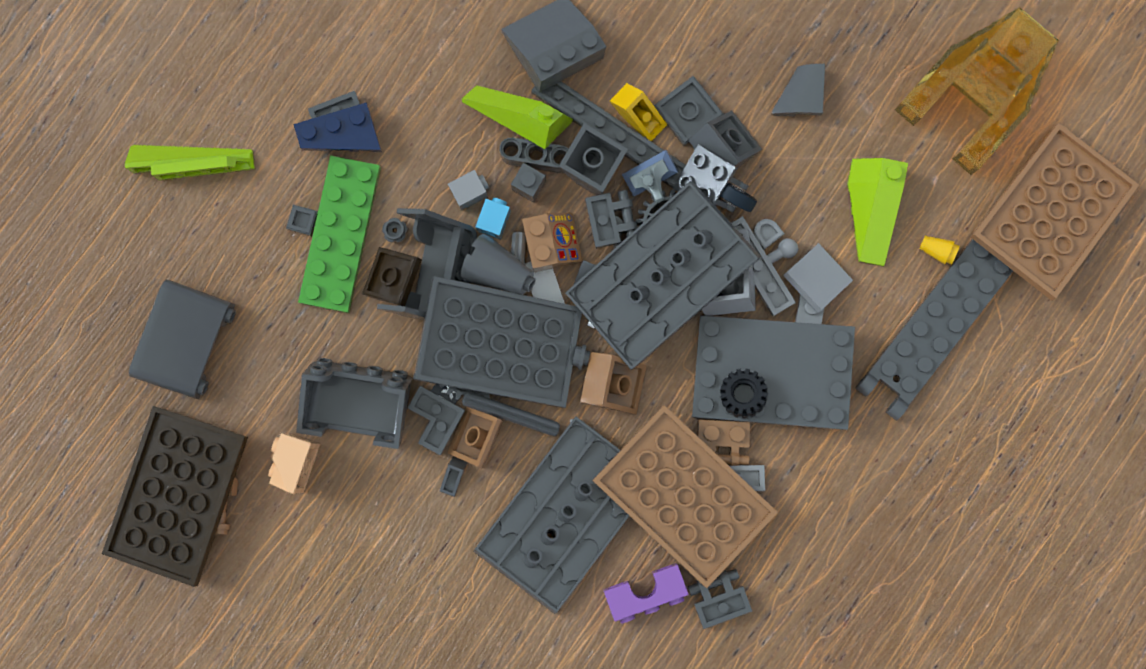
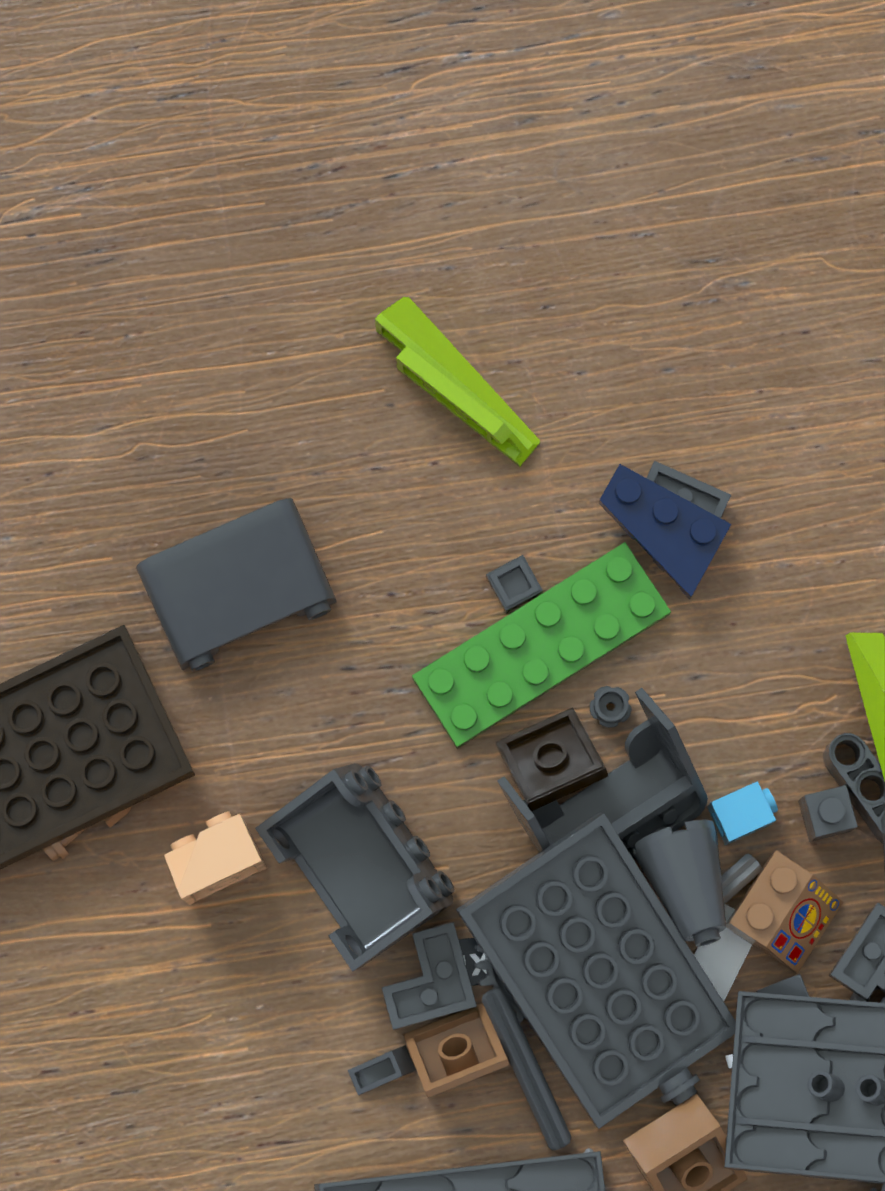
camera: 45 degrees right, 5 degrees down
(469, 189) = (748, 748): light grey brick -> none

